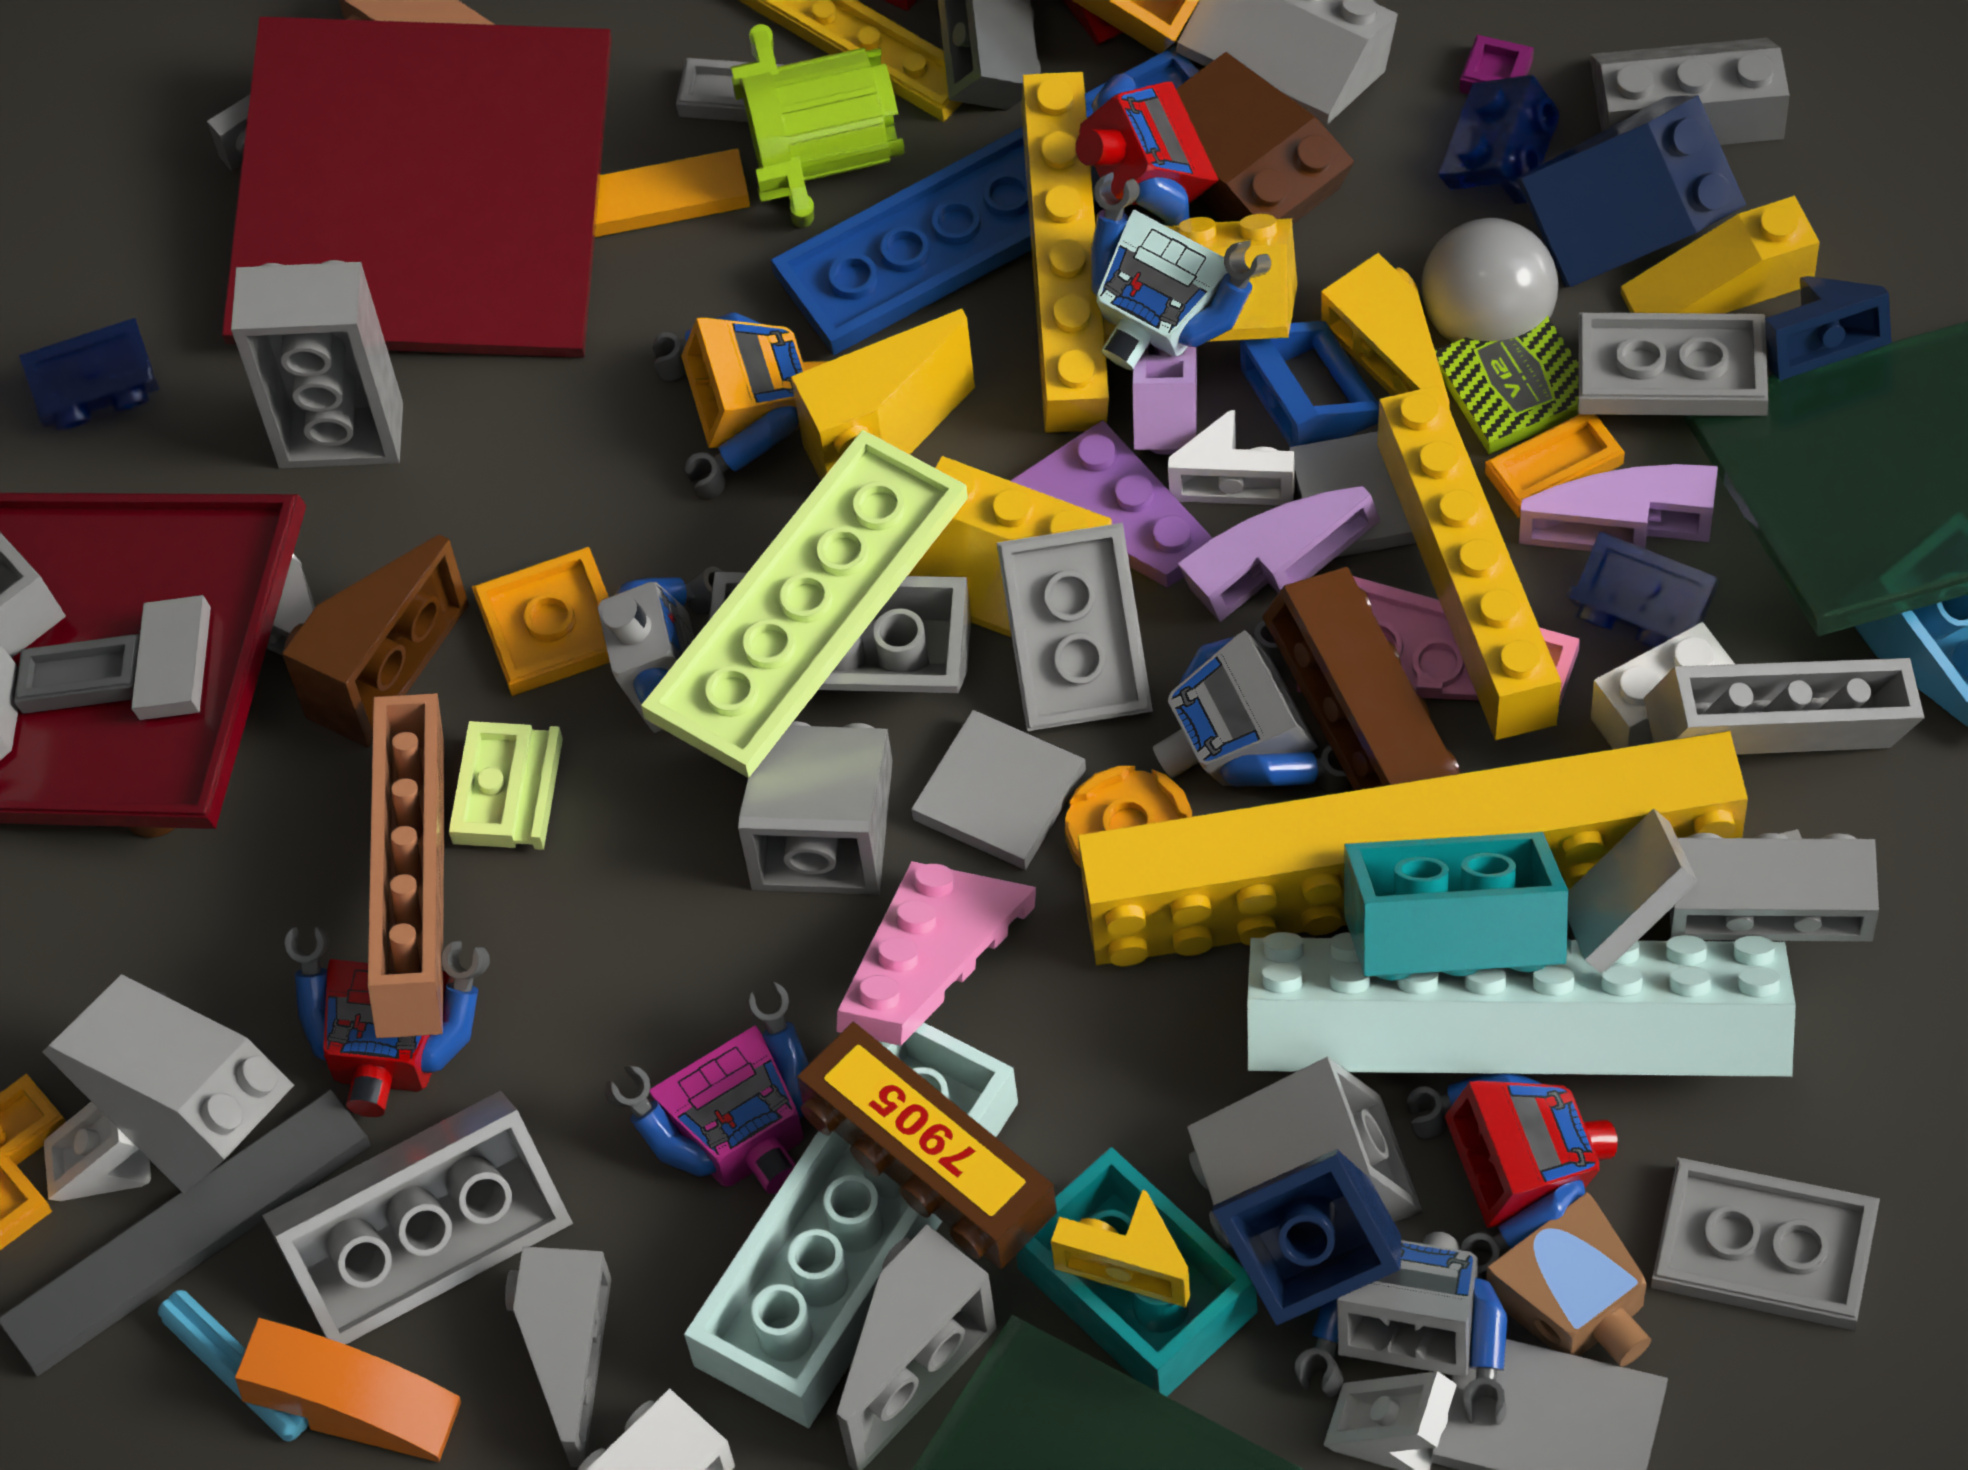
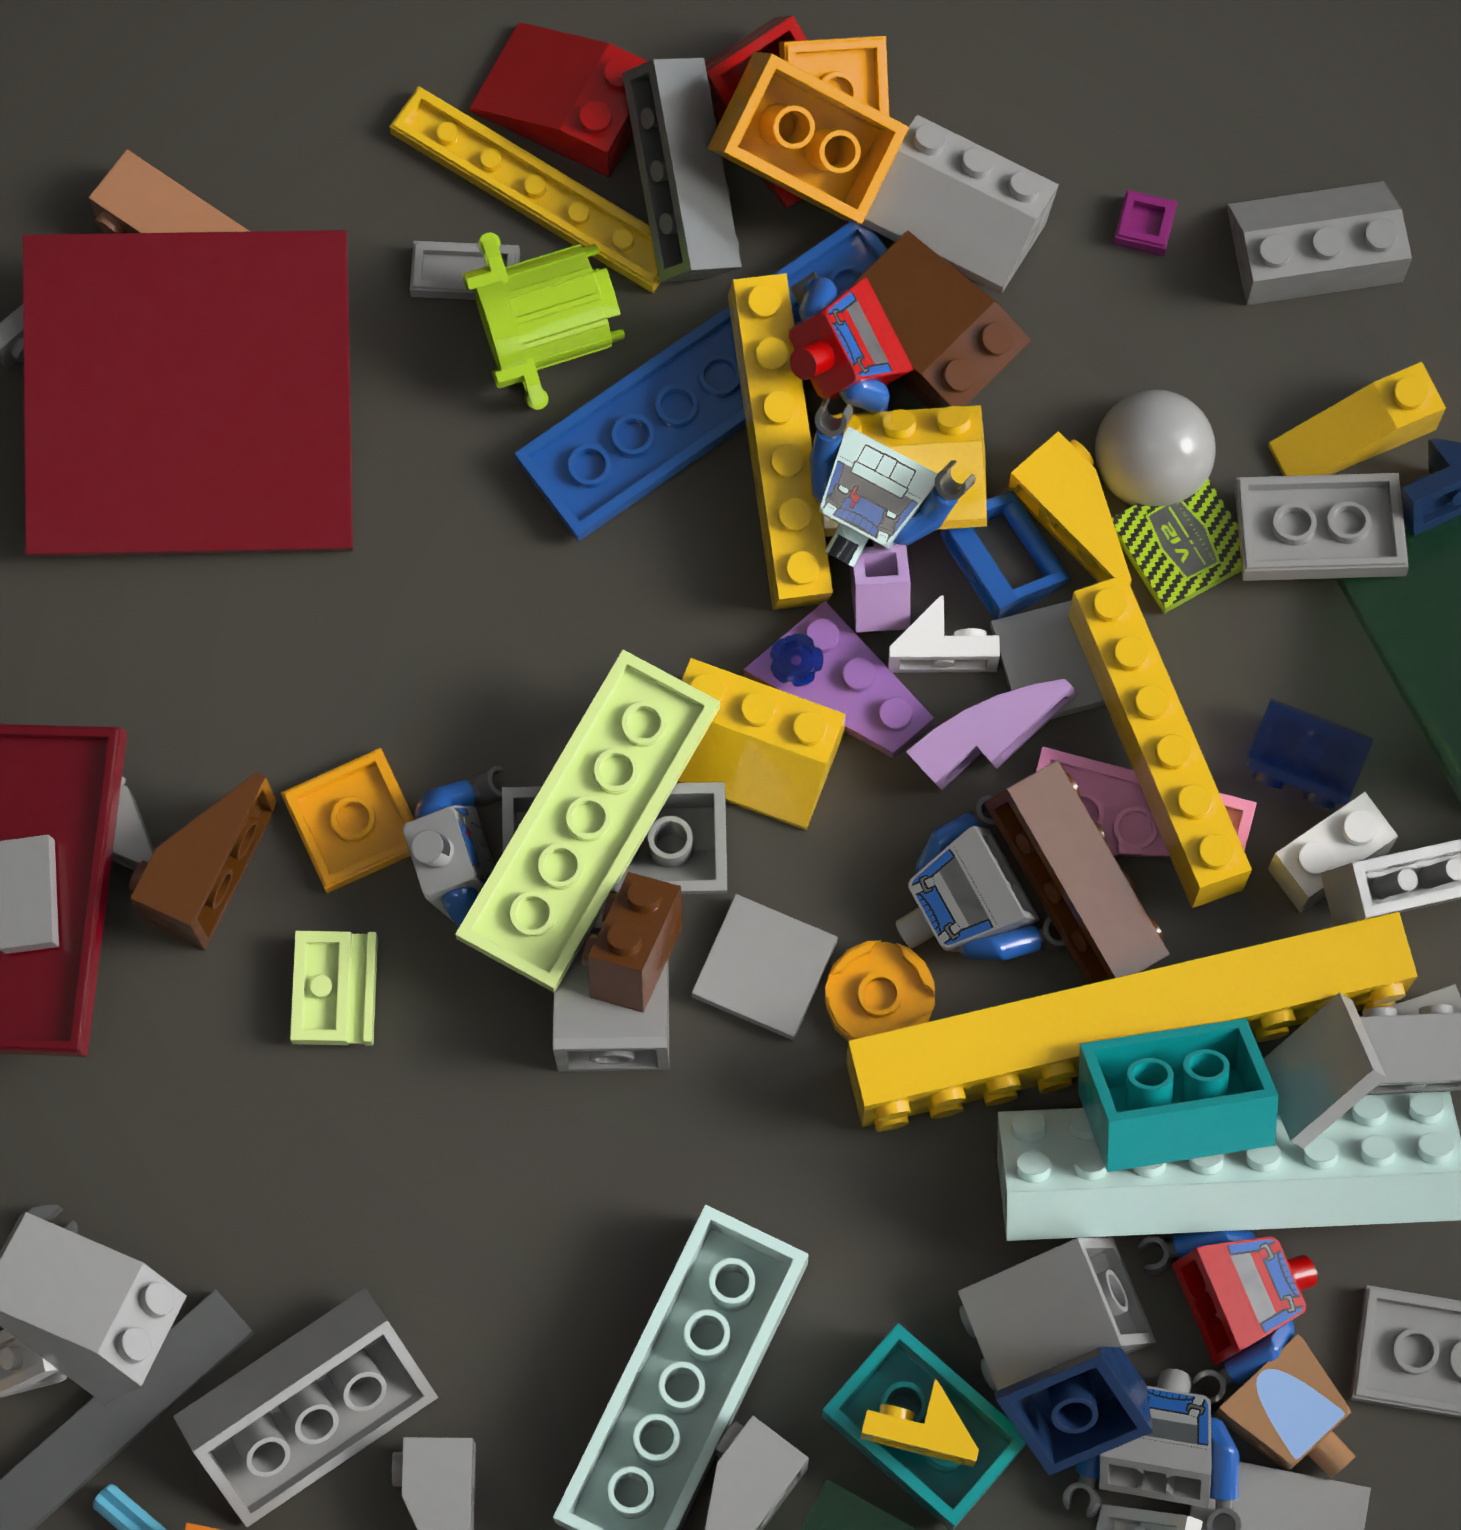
camera: 10 degrees left, 15 degrees up
(318, 364) = (125, 603): light grey brick -> none
(341, 1030) = (254, 1225): torso -> none
(407, 867) = (263, 1089): nougat brick -> none
(671, 192) = (415, 380): light orange tile -> none
(730, 1108) = (565, 1288): torso -> none
(739, 388) = (505, 586): torso -> none
(844, 725) = (634, 941): none -> reddish brown brick
(887, 388) = (628, 602): yellow slope -> none
(926, 1146) = (744, 1341): reddish brown brick -> none
(927, 943) = (721, 1135): bright pink wing -> none
(1061, 456) = (786, 649): none -> clear blue plate
(1074, 627) = (820, 817): light grey tile -> none
(1500, 135) = (1155, 296): clear blue bracket -> none
(1553, 458) = (1221, 623): light orange tile -> none
(1623, 503) = (1288, 671): lavender slope -> none
(1632, 189) = (1278, 356): dark blue slope -> none

